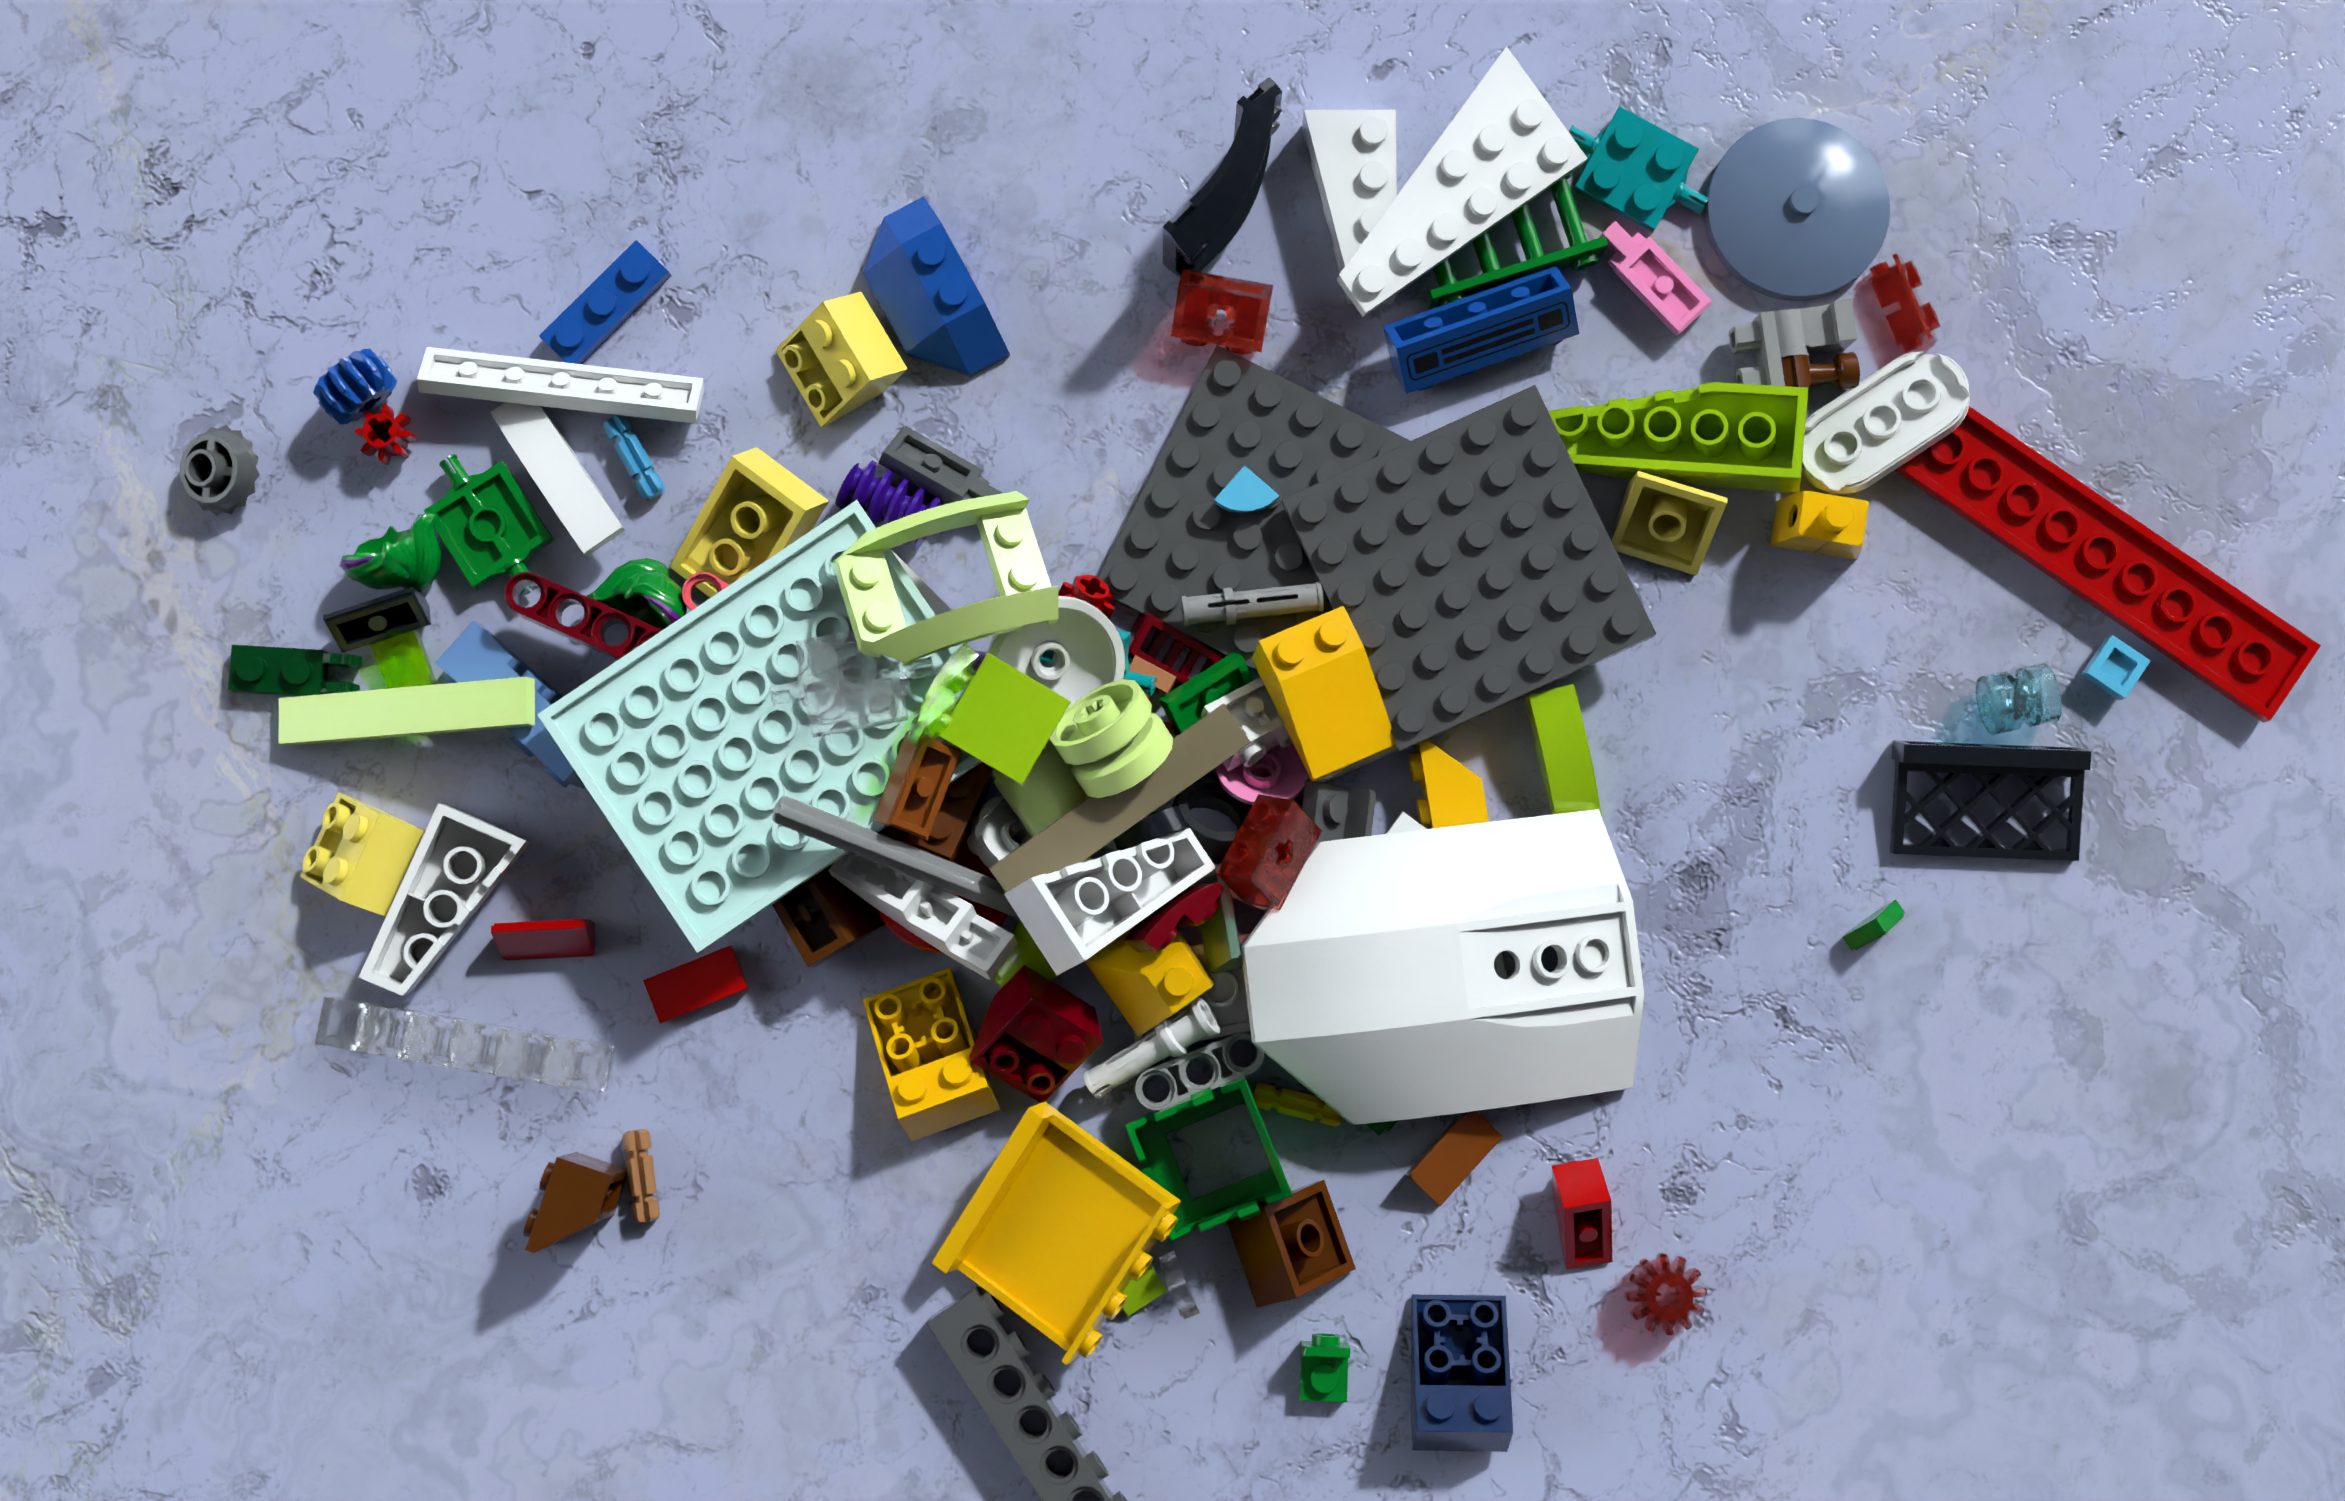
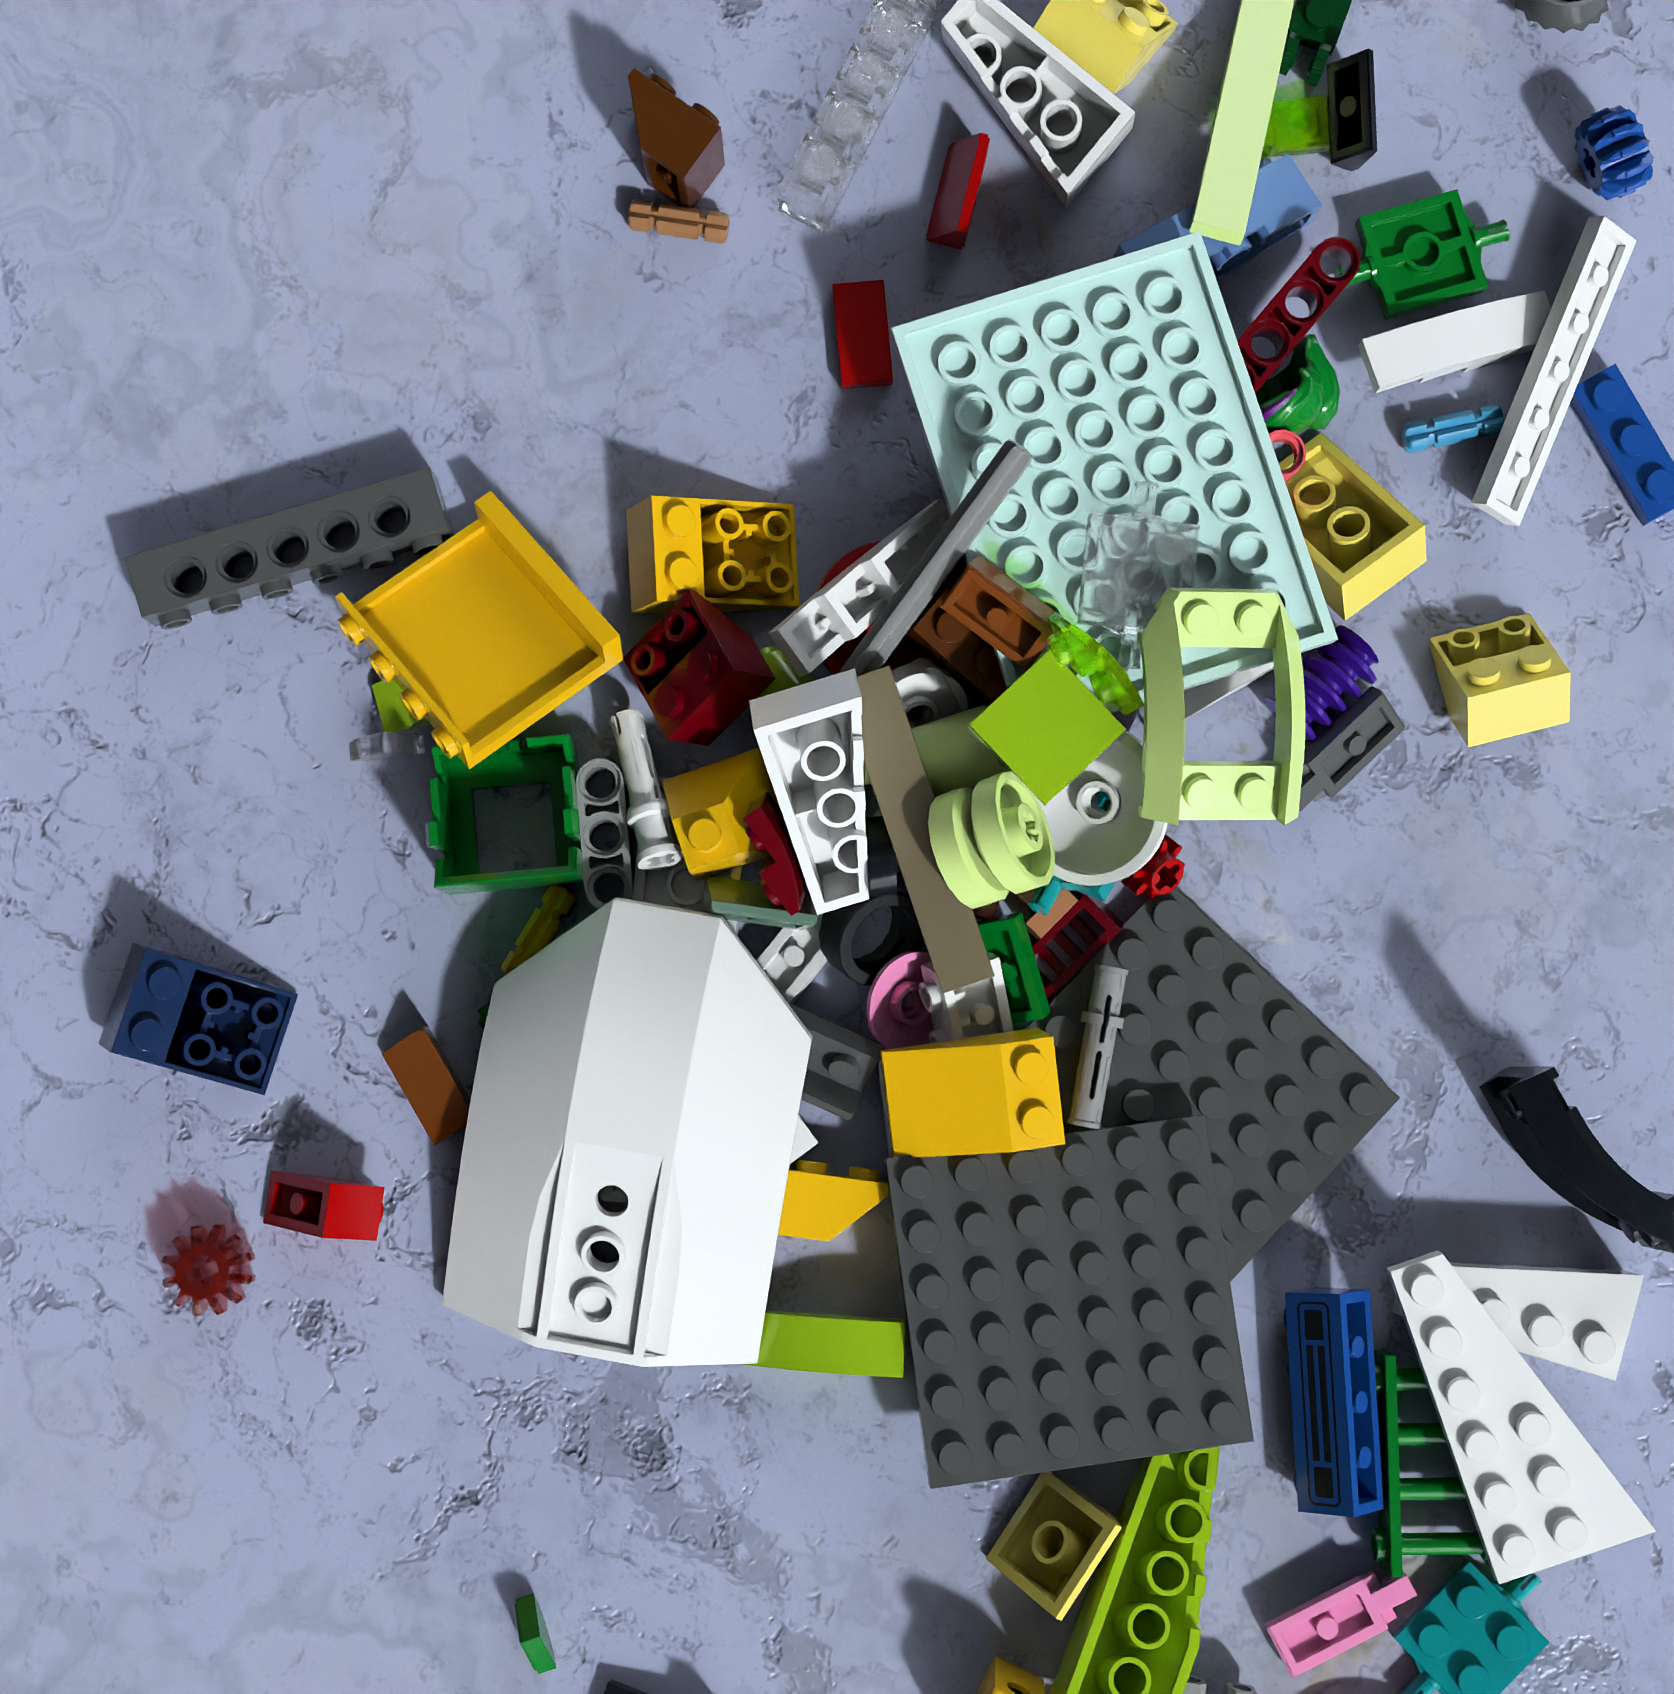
camera: 105 degrees right, 0 degrees up
(396, 427) = (1539, 170): red gear -> none
(398, 558) = (1411, 148): green hair -> none
(826, 917) = (890, 482): reddish brown slope -> none
(931, 293) = (1545, 798): blue wedge -> none
(1245, 307) = (1441, 1139): clear red brick -> none
(1246, 493) = (1222, 1077): medium azure tile -> none
(1269, 852) = (816, 978): clear red brick -> none
(1292, 1245) = (387, 881): reddish brown slope -> none
(1324, 1369) = (249, 875): green bracket -> none

